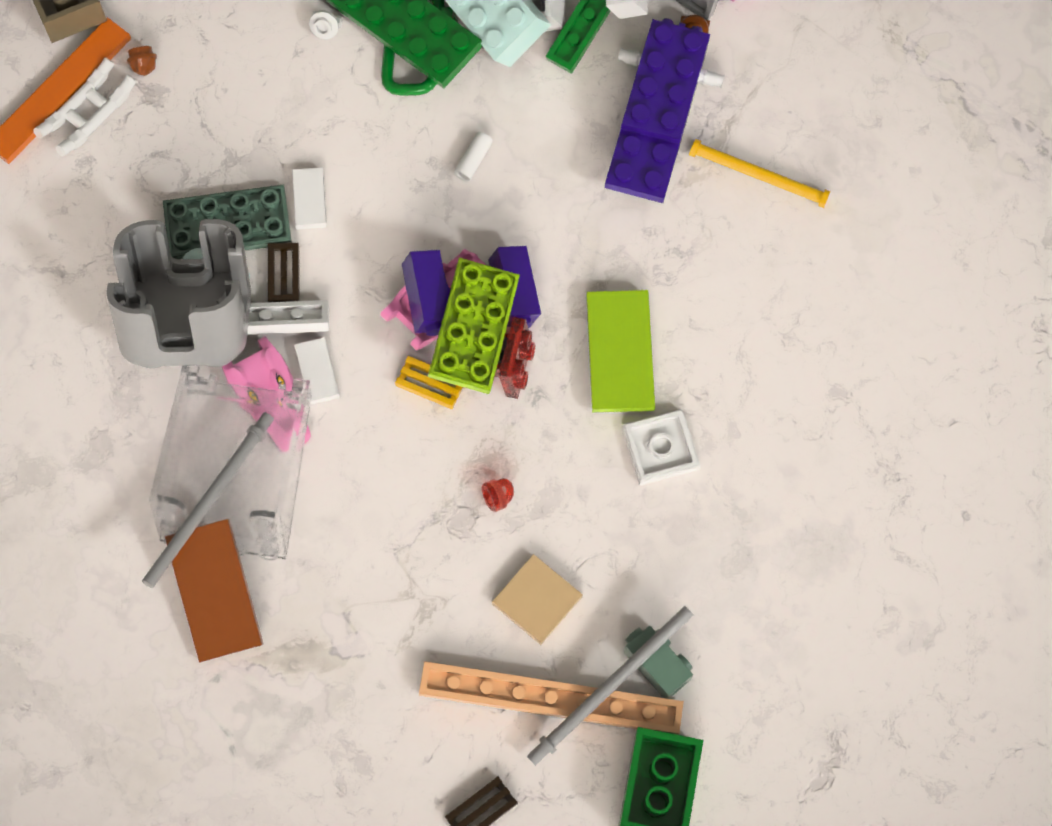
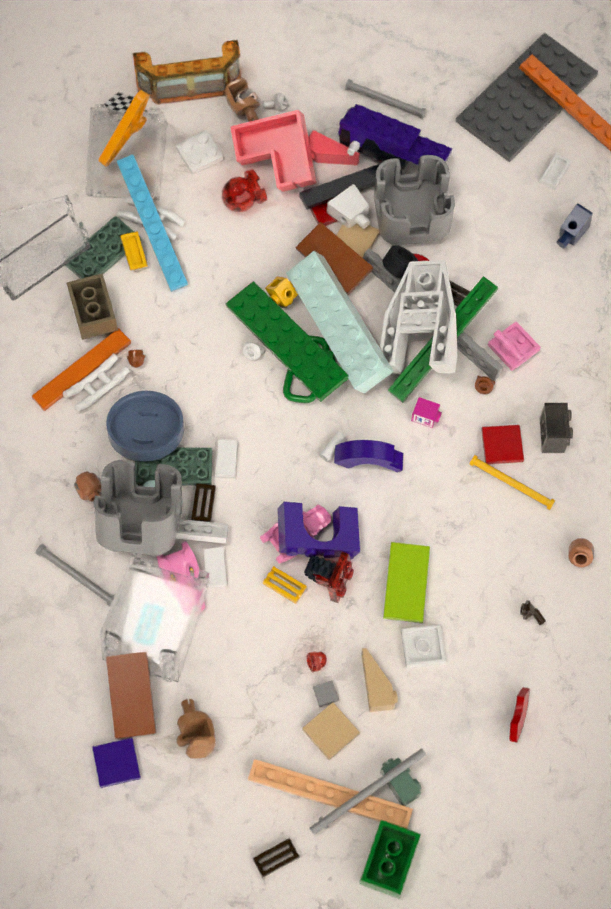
camera: 10 degrees right, 5 degrees down
(38, 383) = (41, 550): none -> light grey bar
(94, 271) = (87, 486): none -> nougat head
(172, 164) = (145, 425): none -> sand blue brick
(207, 700) = (116, 762): none -> dark purple tile
(228, 447) = (140, 622): none -> clear light blue tile
(256, 434) = (170, 601): light grey bar -> none
(325, 631) = (196, 731): none -> medium nougat piece
(473, 326) = (316, 553): lime tile -> none
(520, 542) = (325, 693): none -> light grey tile
(530, 157) = (368, 452): none -> dark purple arch
(600, 518) = (378, 687): none -> tan slope
(610, 83) = (426, 412): none -> dark pink brick
(658, 108) = (453, 432): dark purple piece -> none
(735, 117) = (502, 444): none -> red tile
(814, 78) = (555, 427): none -> clear smoke brick
(814, 367) = (528, 610): none -> dark brown plate
(826, 530) = (519, 714): none -> red tile
(883, 266) = (581, 552): none -> nougat head

